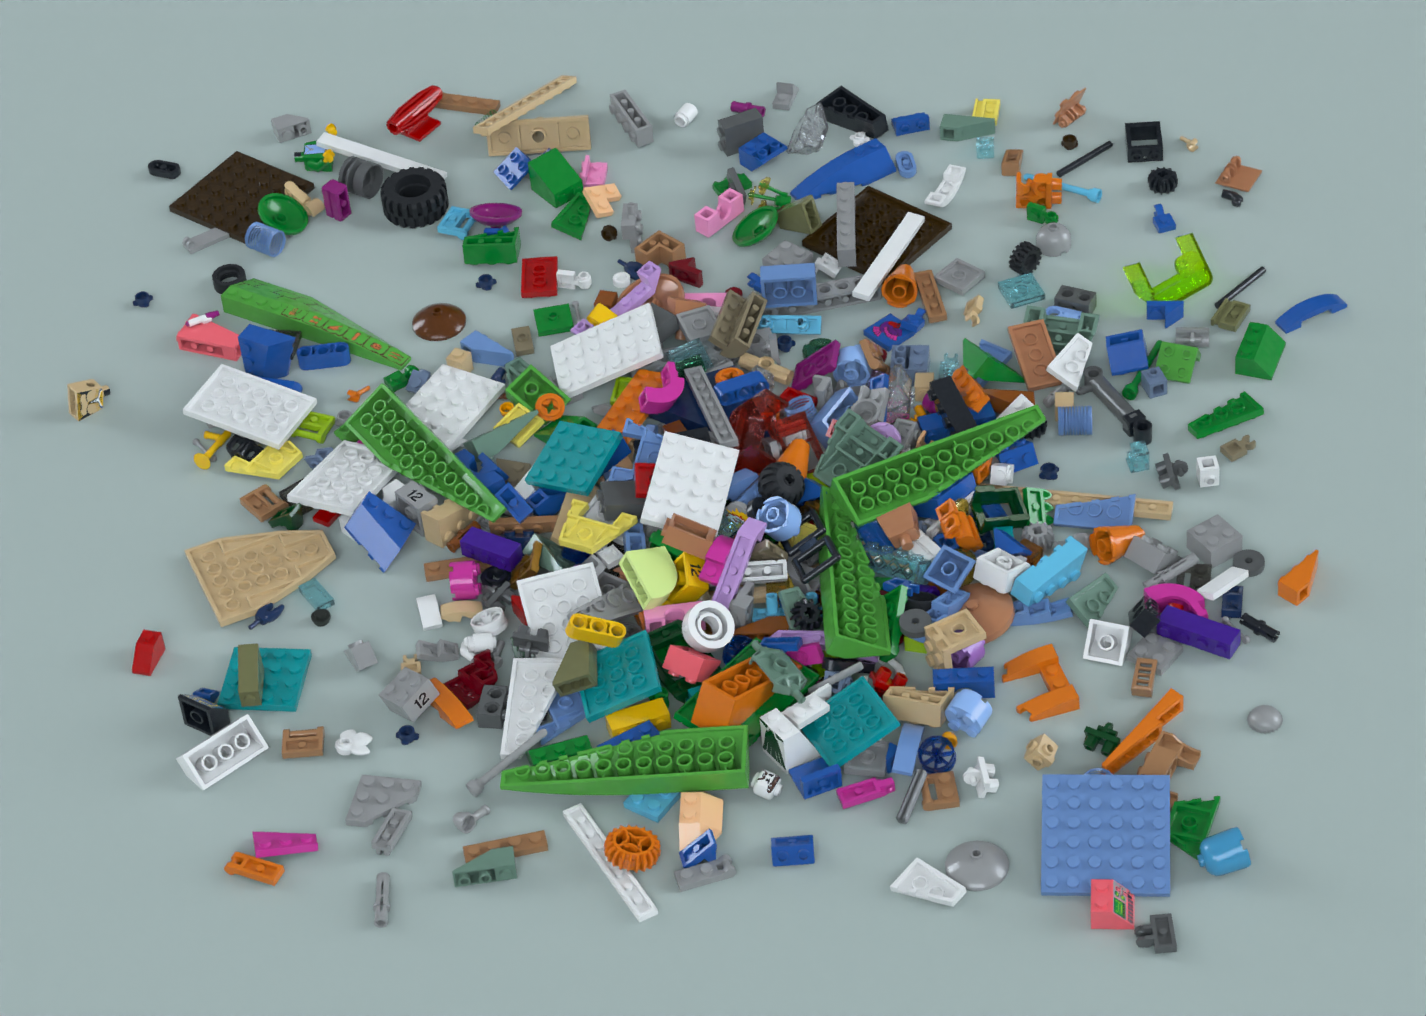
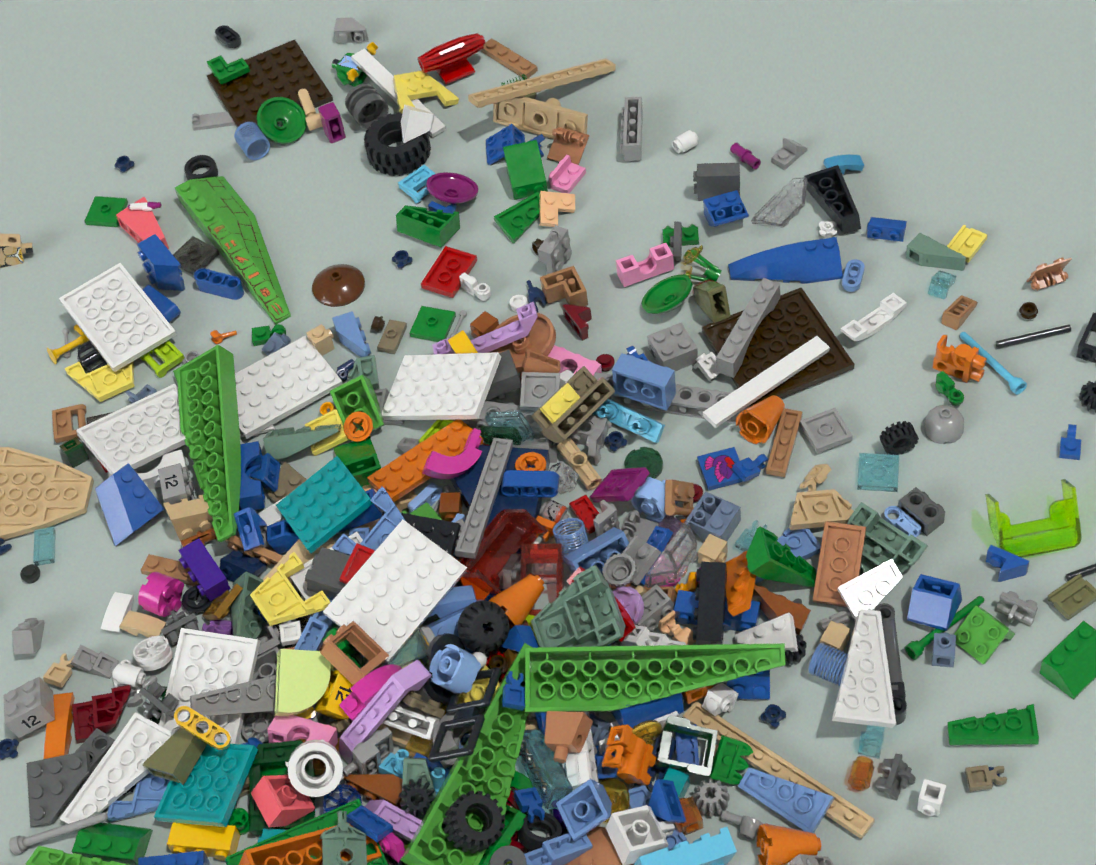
camera: 30 degrees right, 10 degrees up
(156, 341) = (104, 211): none -> green plate
(191, 194) = (226, 72): none -> green plate
(398, 148) = (420, 85): none -> light yellow wing
(428, 169) = (415, 122): none -> white slope
(477, 734) = (54, 784): none -> dark grey plate
(503, 335) = (378, 324): none -> dark brown plate
(577, 147) = (567, 143): none -> nougat hinge
(727, 321) = (559, 402): none -> light yellow plate
(839, 517) = (513, 693): none -> blue plate
(848, 83) = (848, 161): none -> dark azure slope
(871, 602) = (488, 813): none -> black tyre
(990, 328) = (816, 507): none -> tan wing
(1108, 412) = (865, 683): none -> white wing
(1143, 479) = (861, 773): none -> clear orange brick

